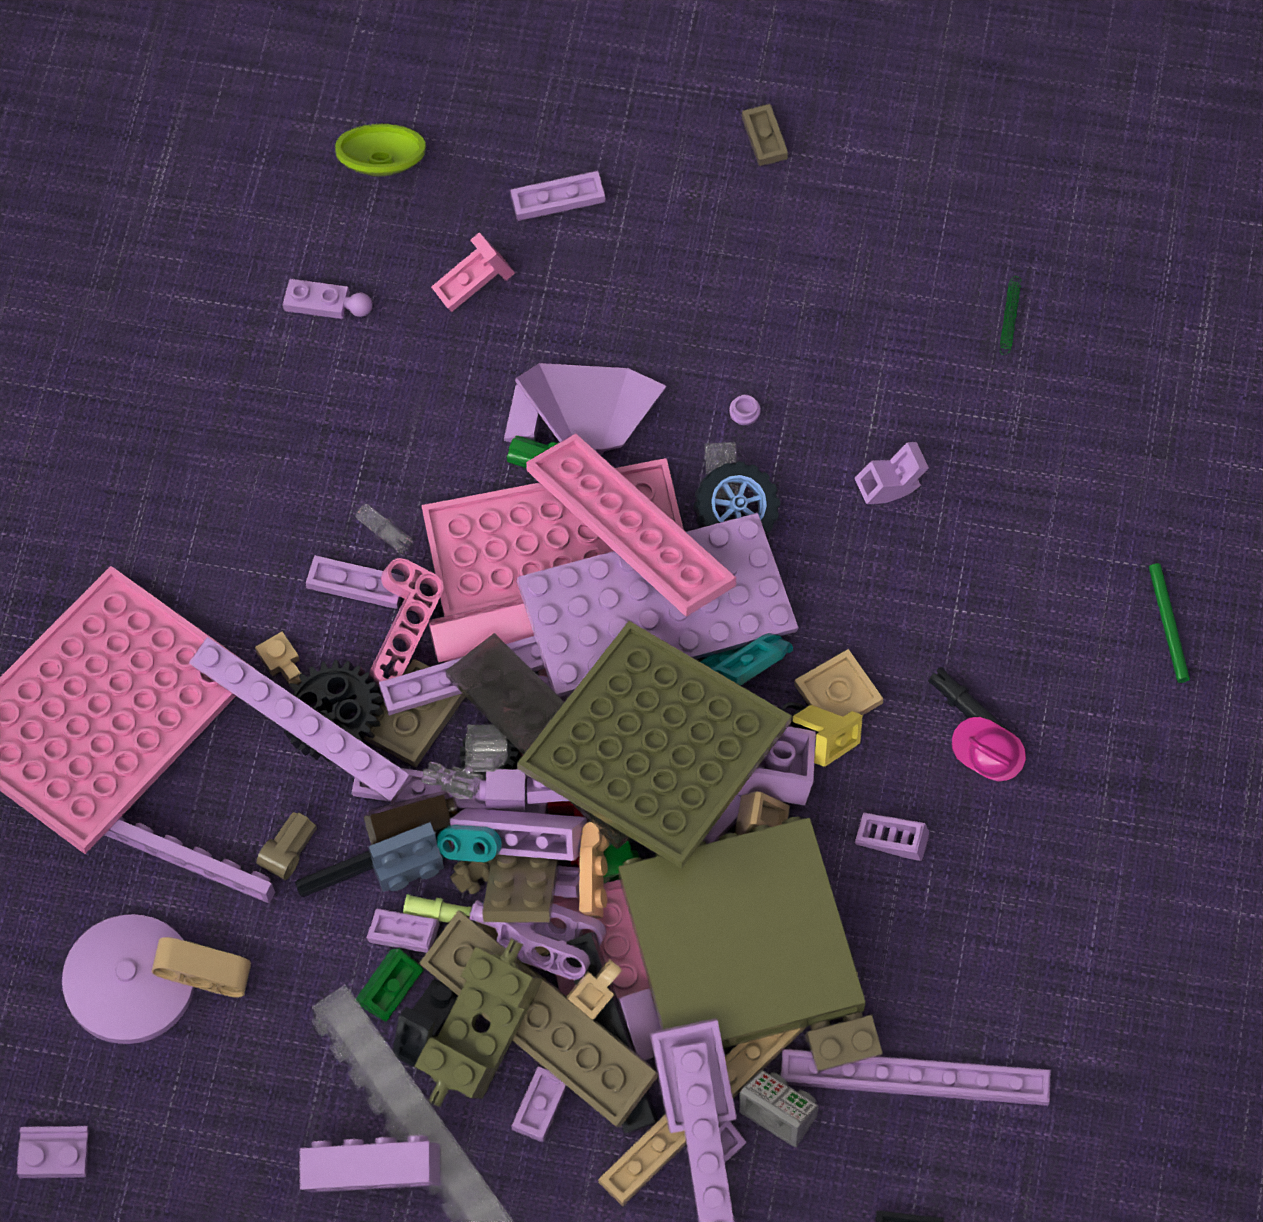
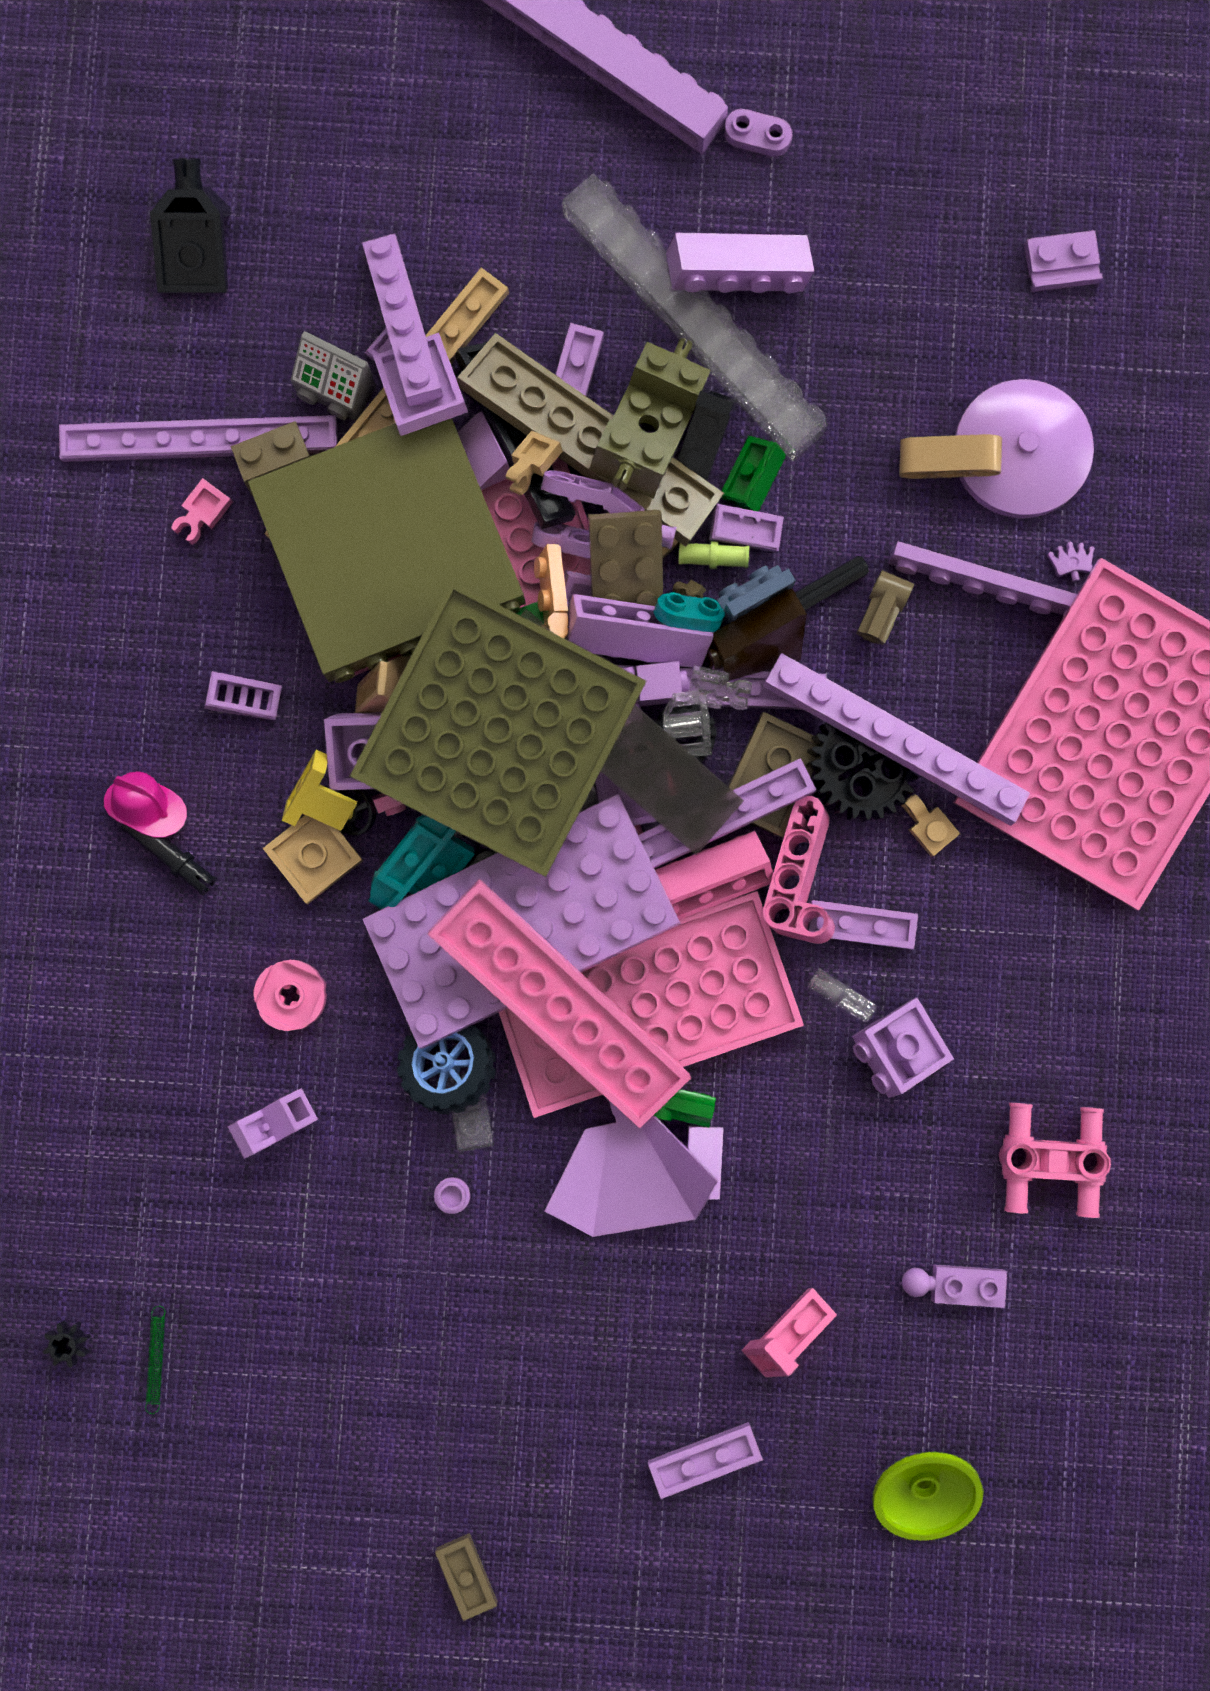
camera: 170 degrees right, 20 degrees up
(103, 871) = (1071, 561): none -> lavender piece
(225, 382) = (1054, 1160): none -> bright pink piece
(339, 478) = (901, 1049): none -> lavender plate
(873, 596) = (282, 976): none -> bright pink plate
(914, 1007) = (204, 506): none -> bright pink plate
(1082, 331) = (76, 1343): none -> black gear

